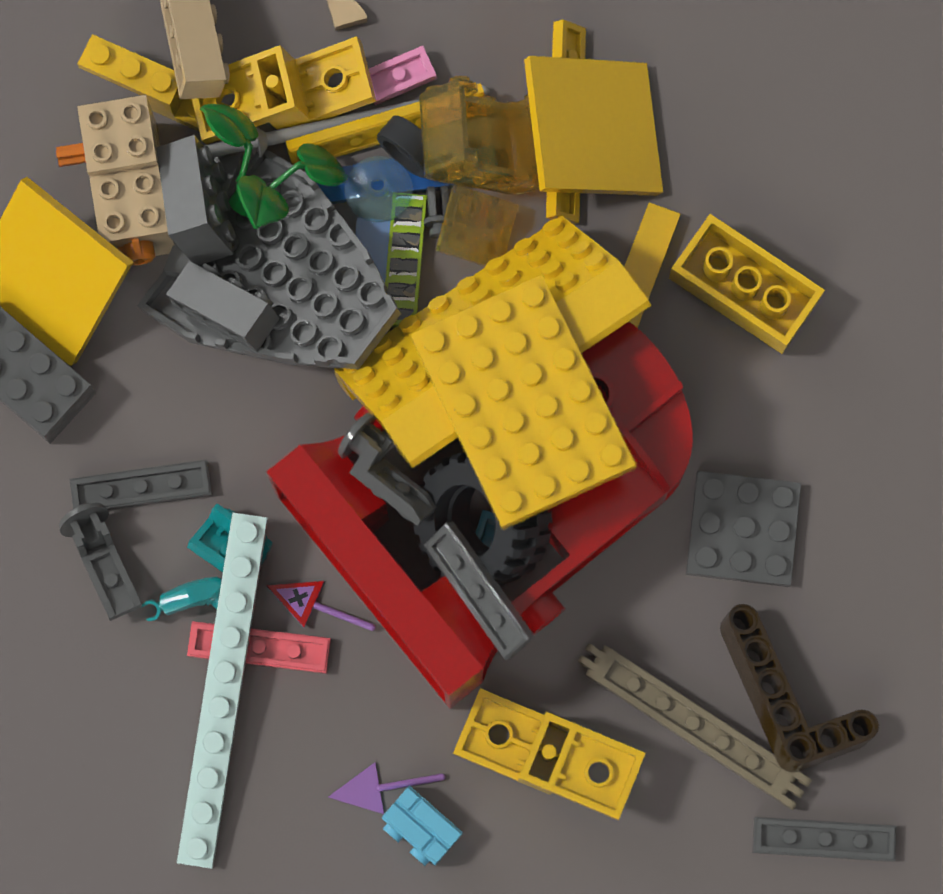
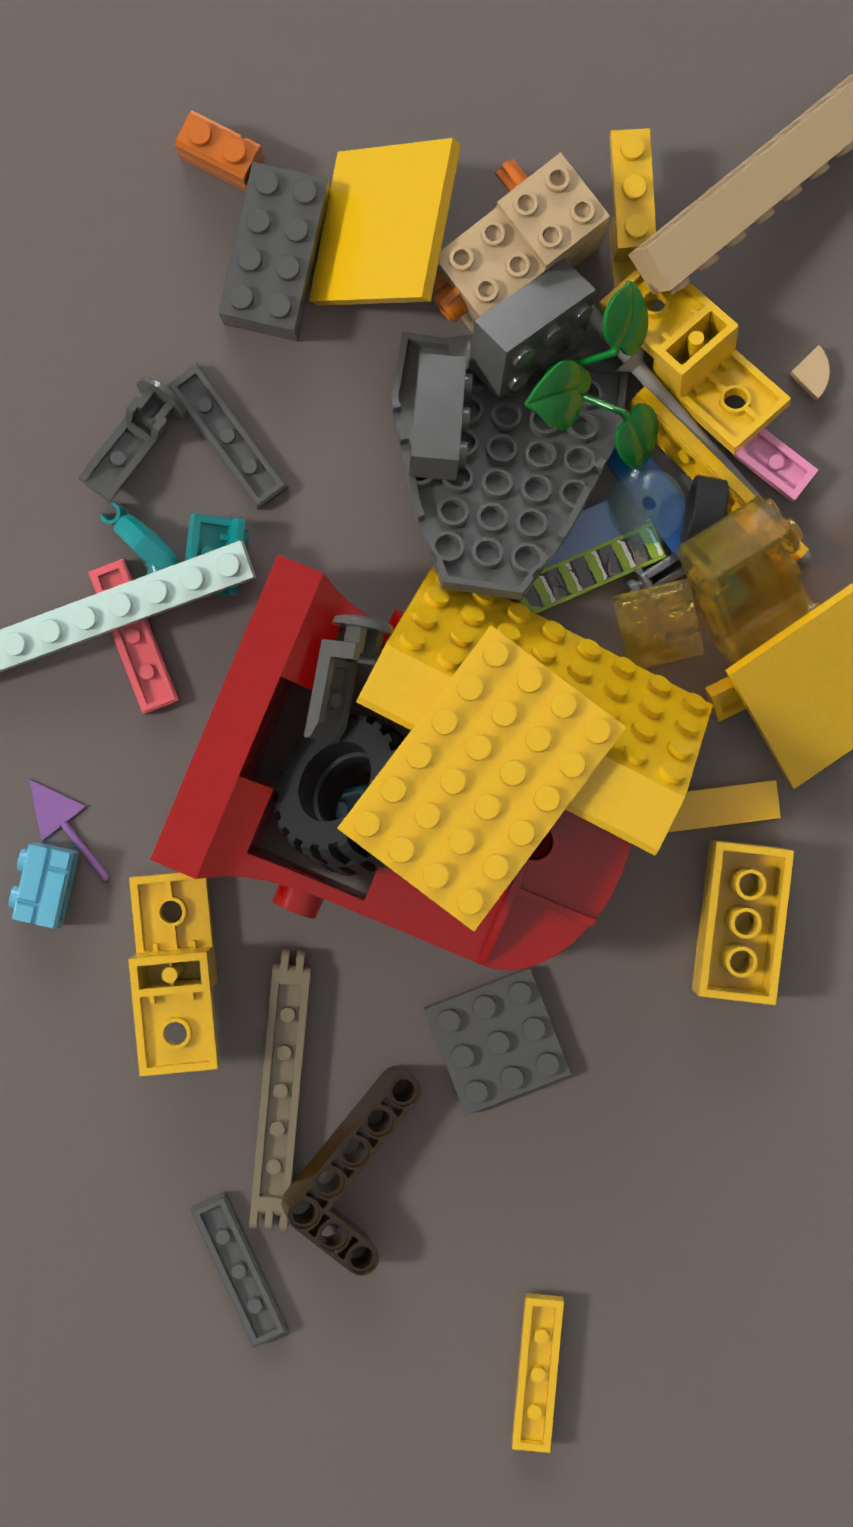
camera: 70 degrees right, 10 degrees up
(301, 599) = (202, 651): piece -> none
(479, 591) = (273, 832): dark grey tile -> none

